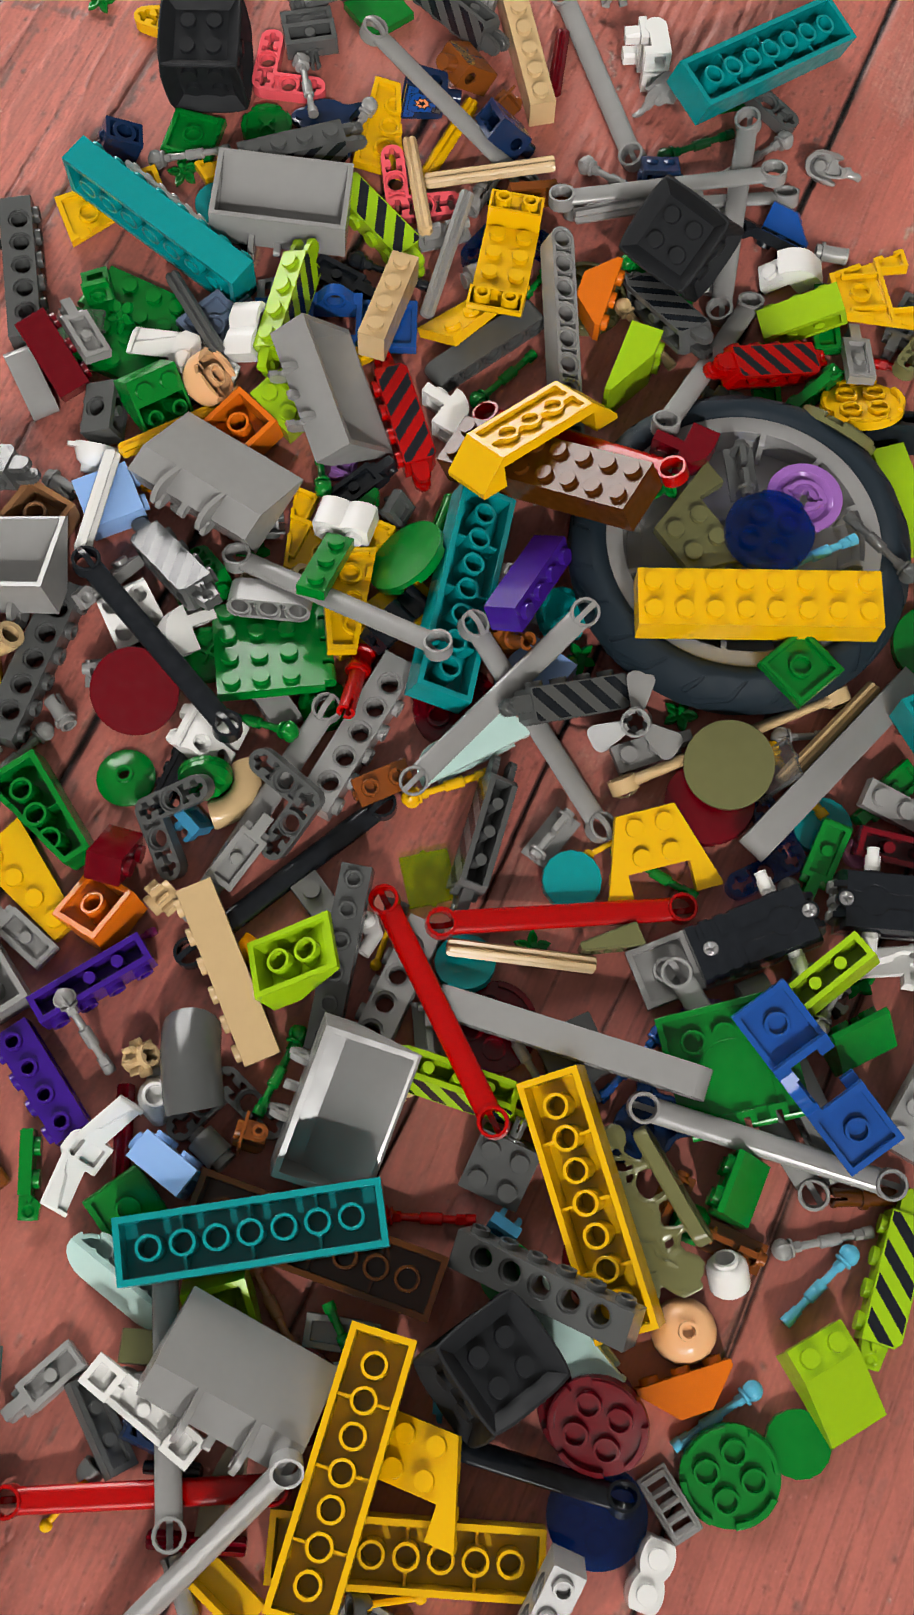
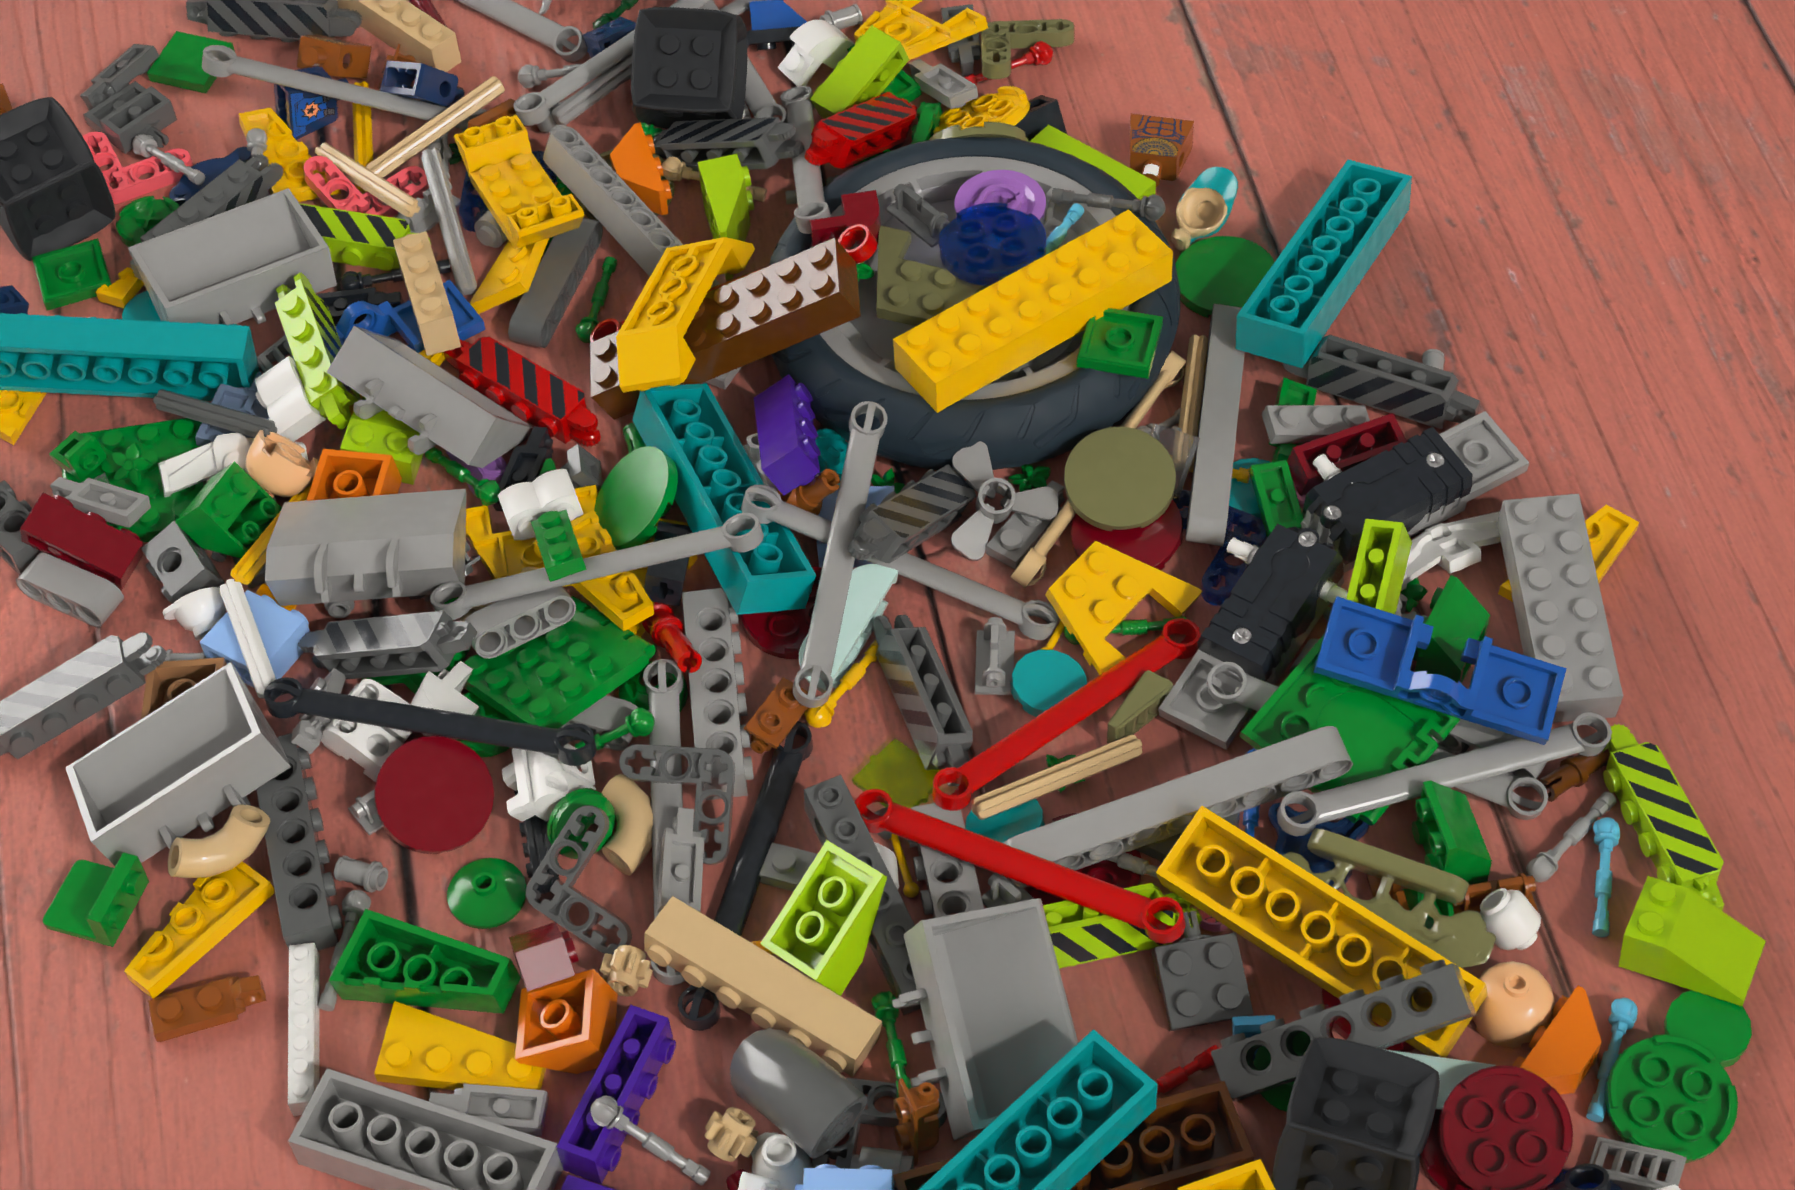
camera: 30 degrees left, 20 degrees down
(160, 158) = (84, 287): light grey piece -> none
(182, 172) = (88, 308): green plant -> none
(194, 822) = (604, 881): dark azure tile -> none
(448, 410) = (565, 354): white brick -> none

